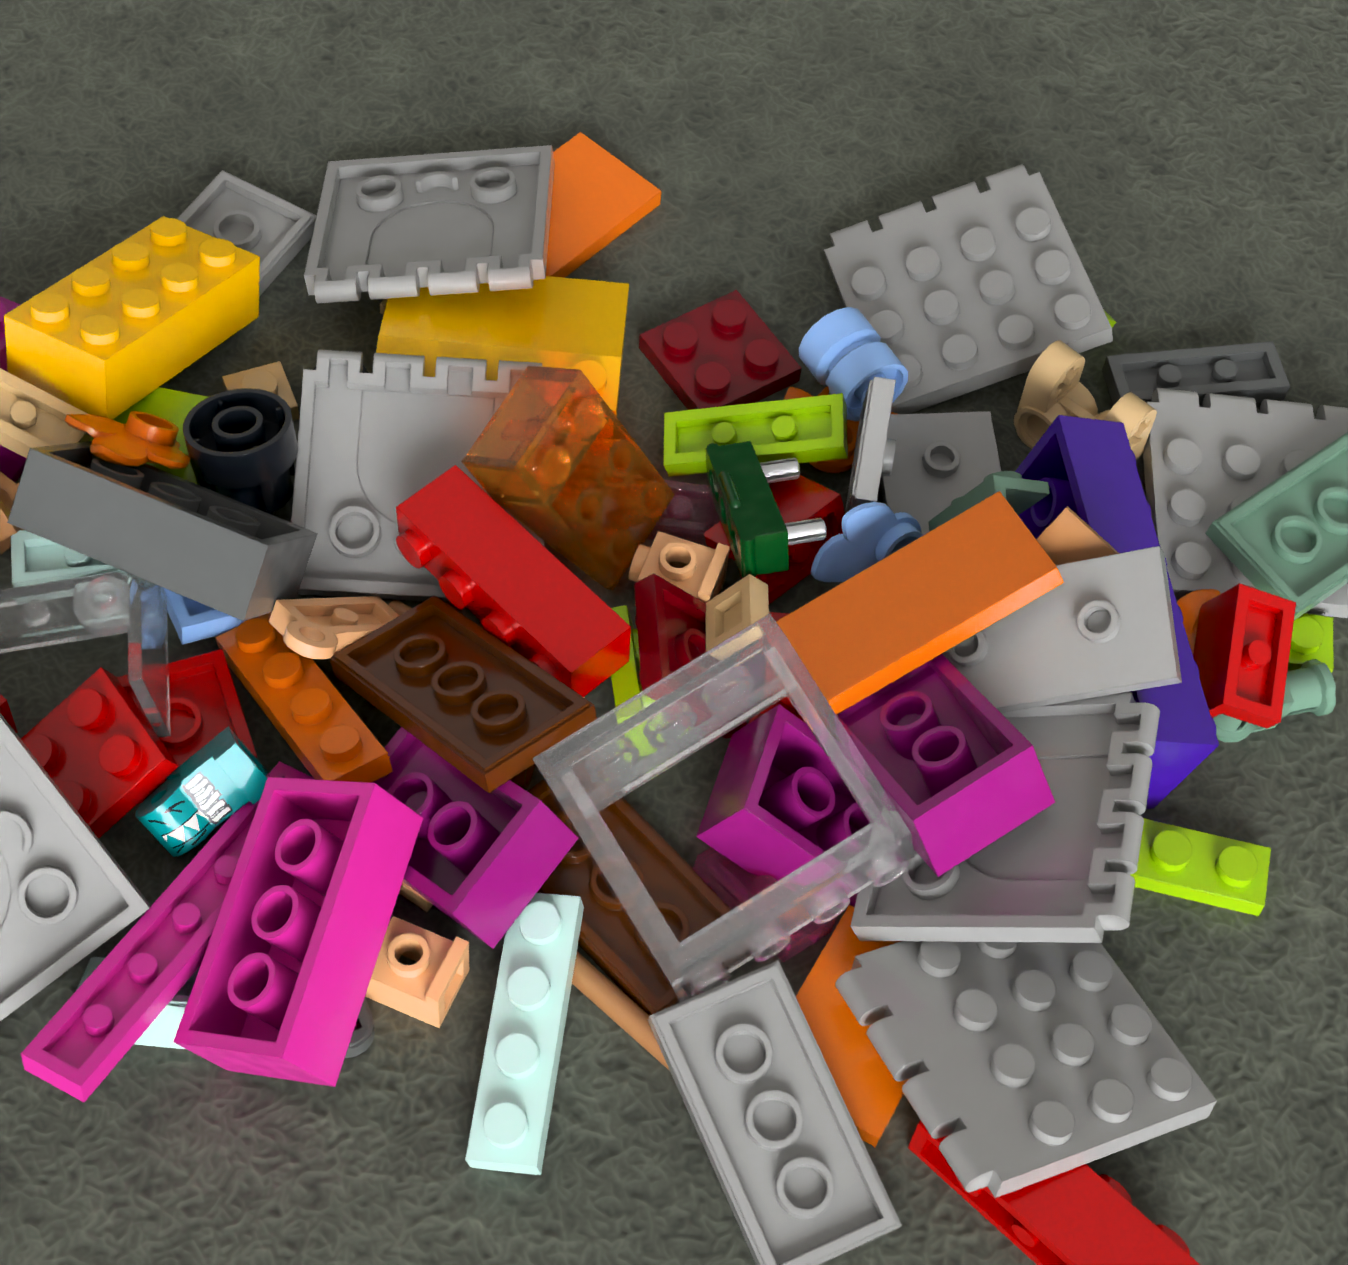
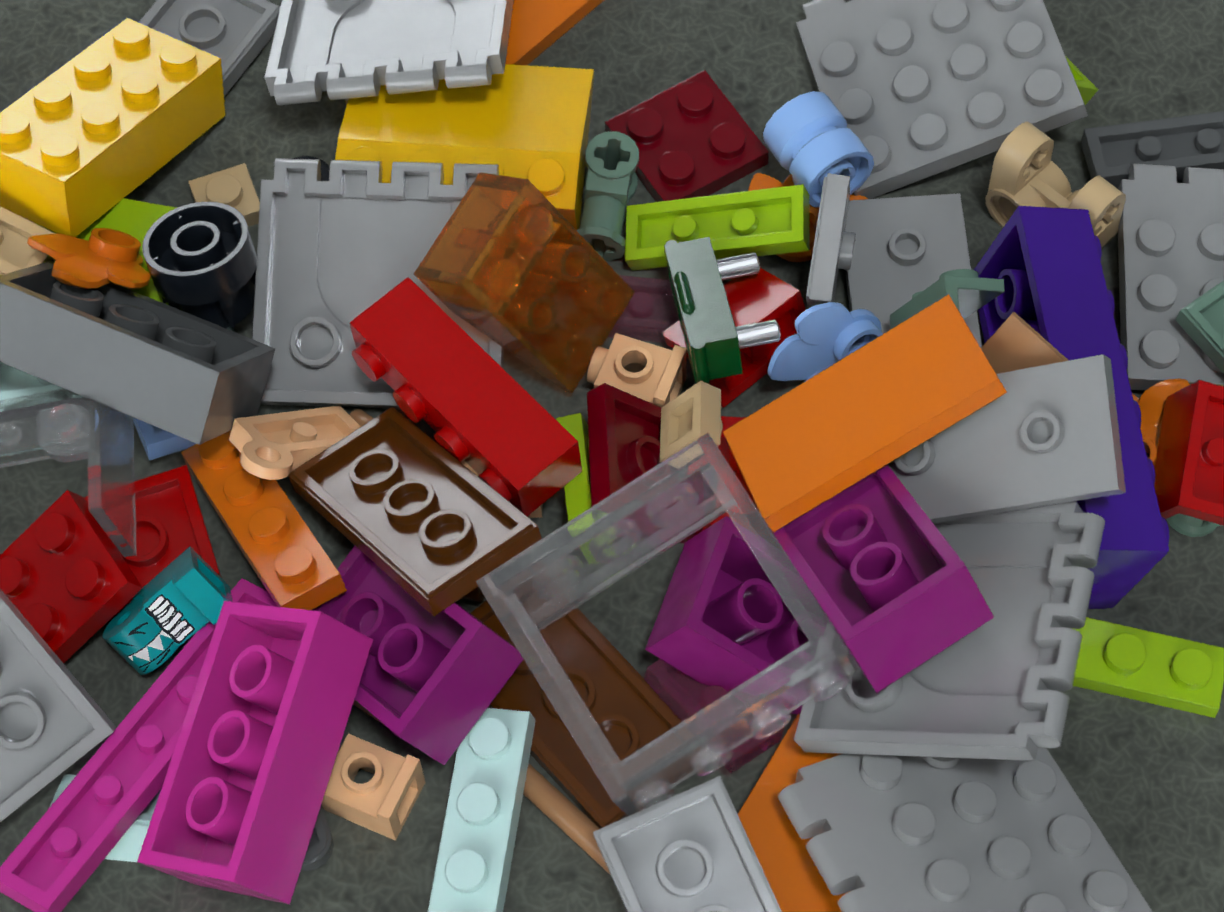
camera: 10 degrees right, 5 degrees up
(647, 394) = (608, 188): none -> sand green connector

